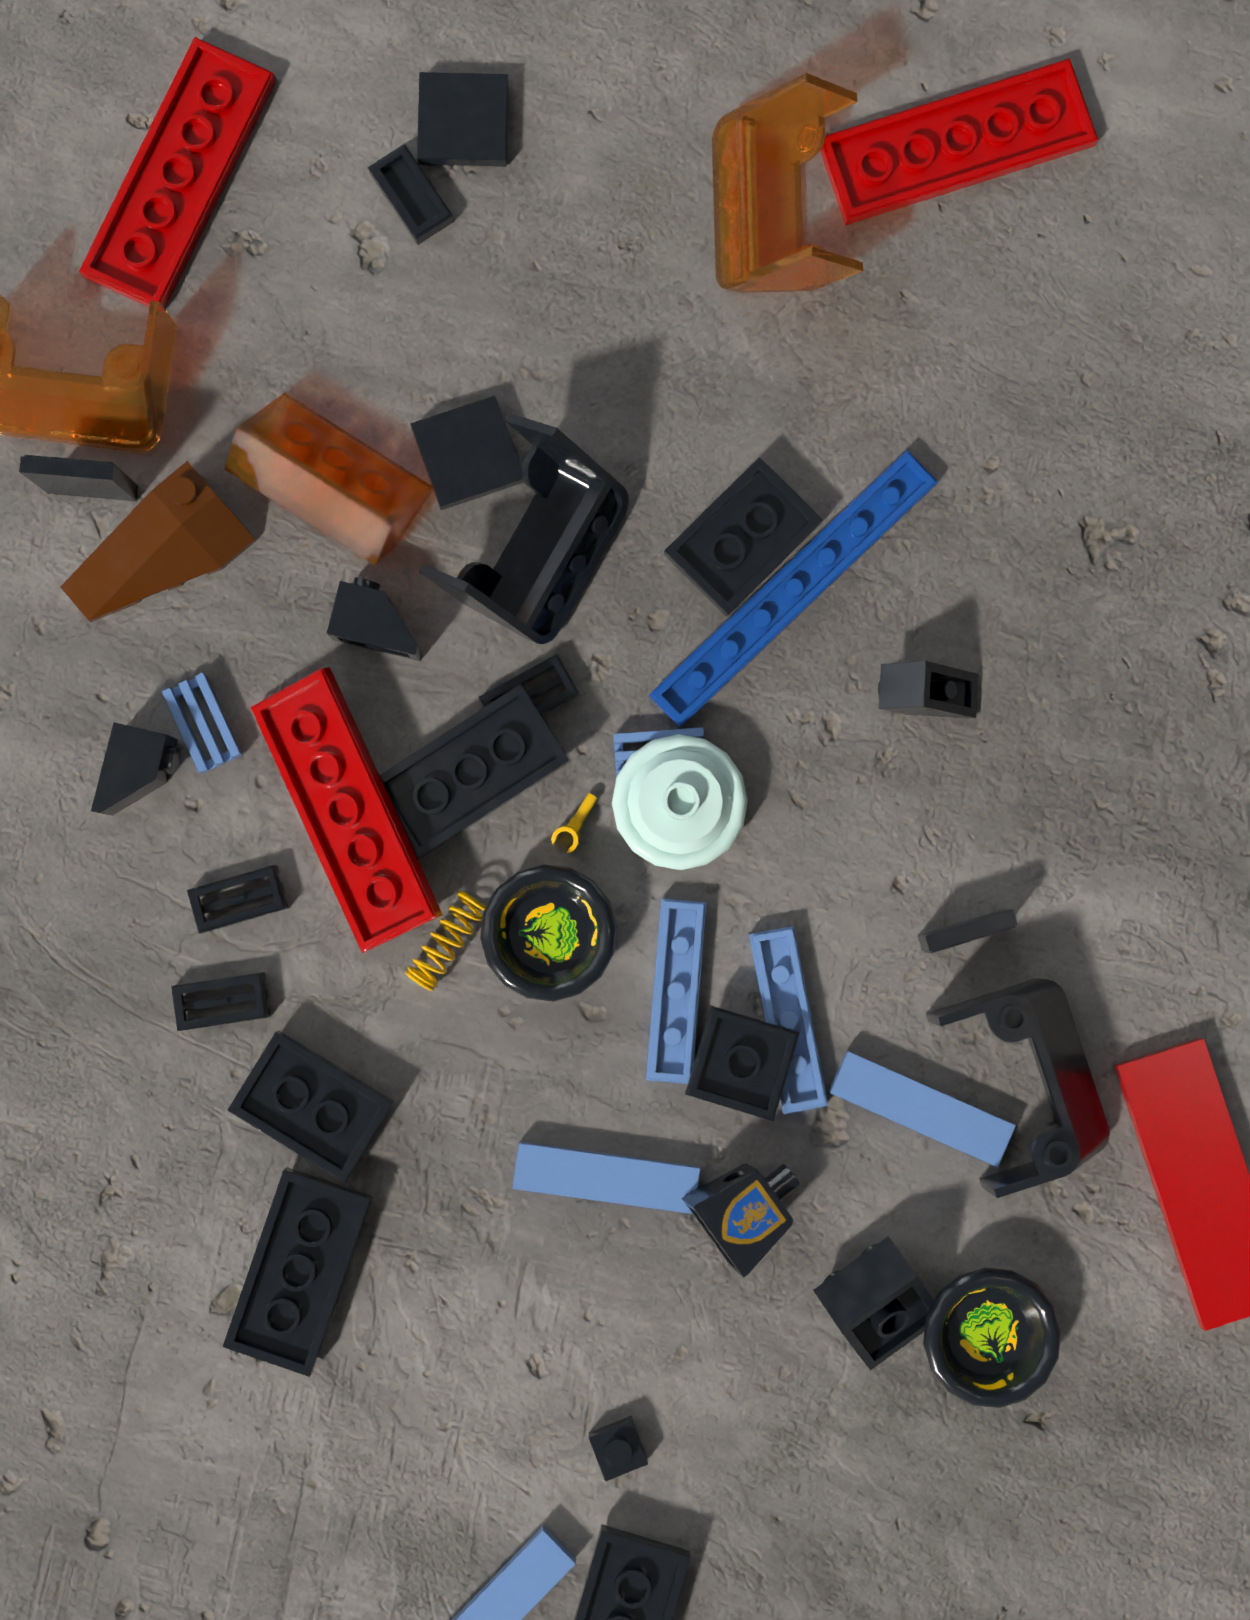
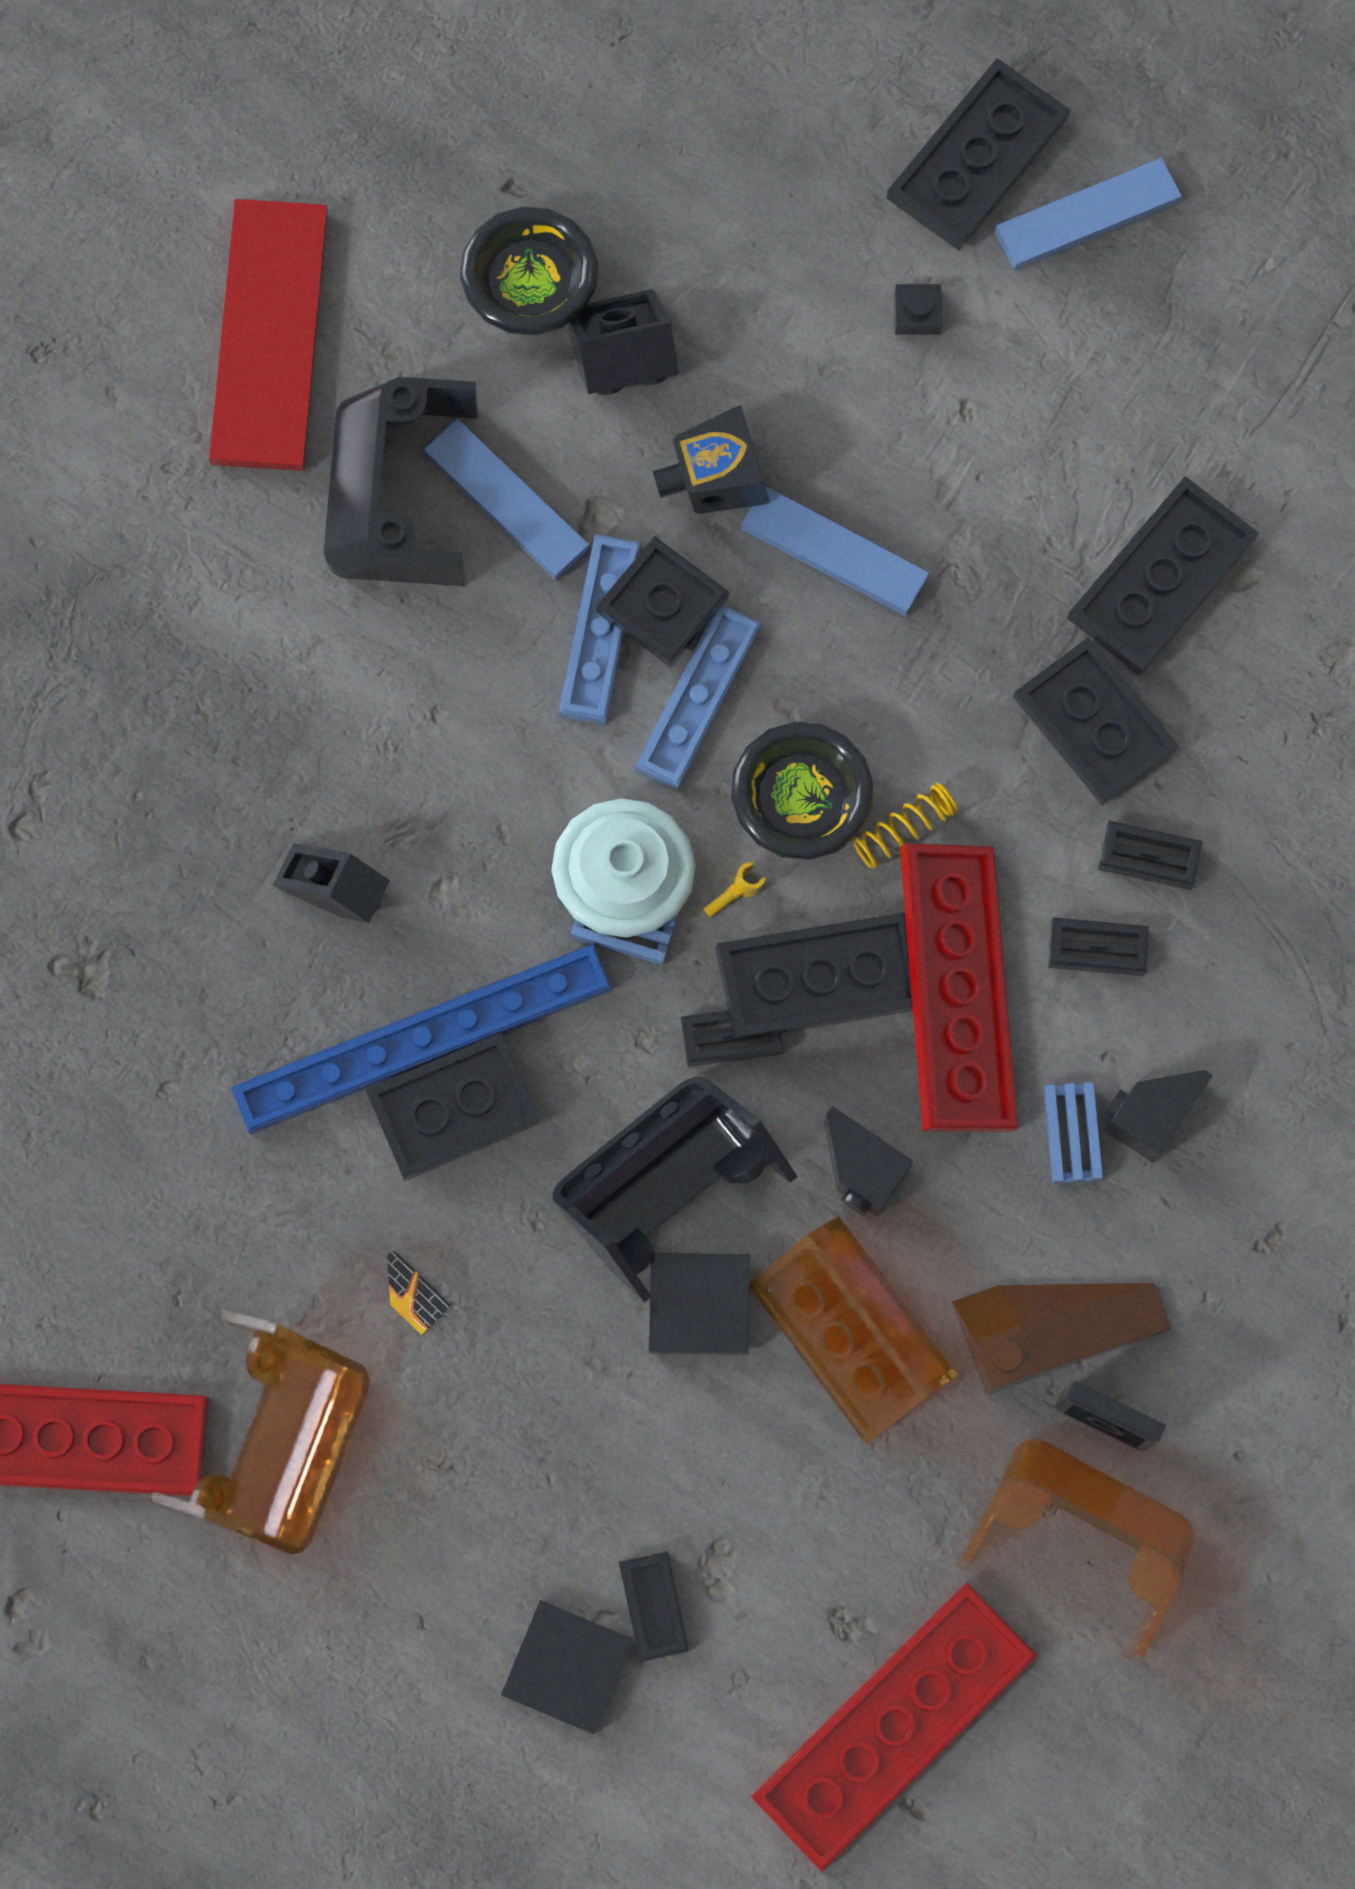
camera: 160 degrees left, 10 degrees down
(711, 372) = (413, 1295): none -> sticker
(967, 931) = (392, 641): black tile -> none

